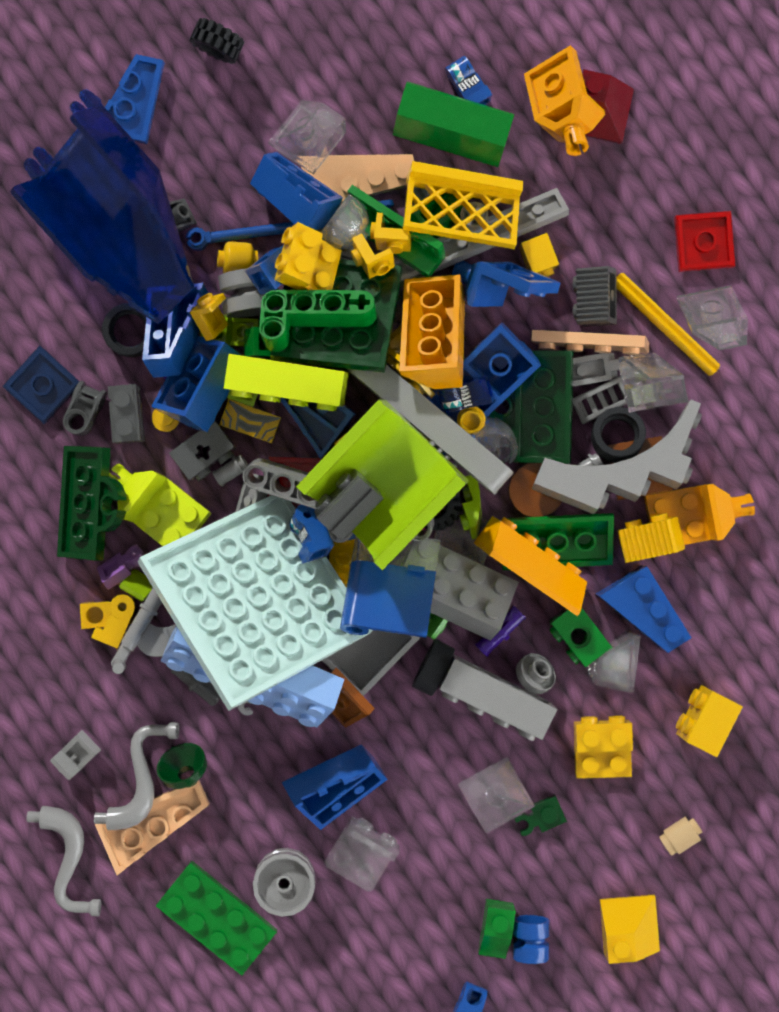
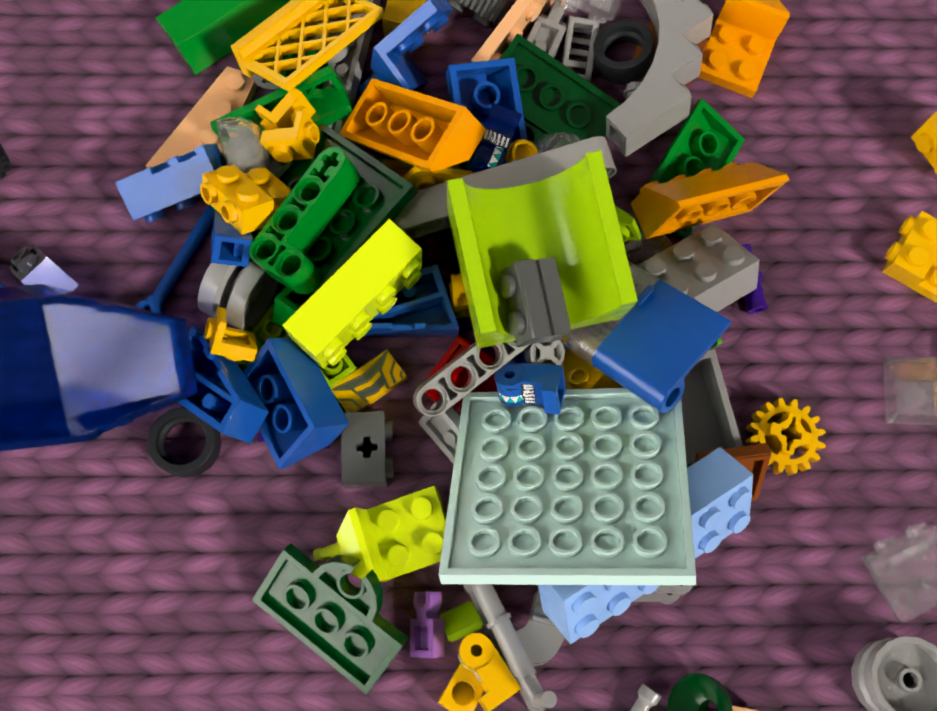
camera: 55 degrees left, 15 degrees down
(42, 384) = (170, 579): dark blue tile -> none
(84, 407) = (225, 543): dark grey piece -> none
(126, 414) = (267, 504): dark grey brick -> none
(163, 422) = (304, 471): yellow plate -> none
(173, 149) = (35, 267): none -> slope
(204, 690) = (617, 628): dark grey axle -> none
(230, 470) = (405, 435): light grey pin -> none
(236, 256) = (188, 283): yellow head -> none
(309, 134) = (132, 136): clear slope -> none
(334, 785) = (823, 546): blue wedge -> none
(402, 732) = (797, 428): none -> yellow gear
(433, 667) = (752, 361): black tyre -> none
(498, 697) = (823, 318): light grey brick -> none
(527, 500) = (634, 169): dark orange tile -> none
(535, 673) = (816, 270): light grey plate -> none
(590, 647) = (815, 199): green brick -> none
(618, 665) = (853, 182): clear slope -> none
(646, 607) = (811, 129): blue wedge -> none
(651, 538) = (745, 82): yellow brick -> none

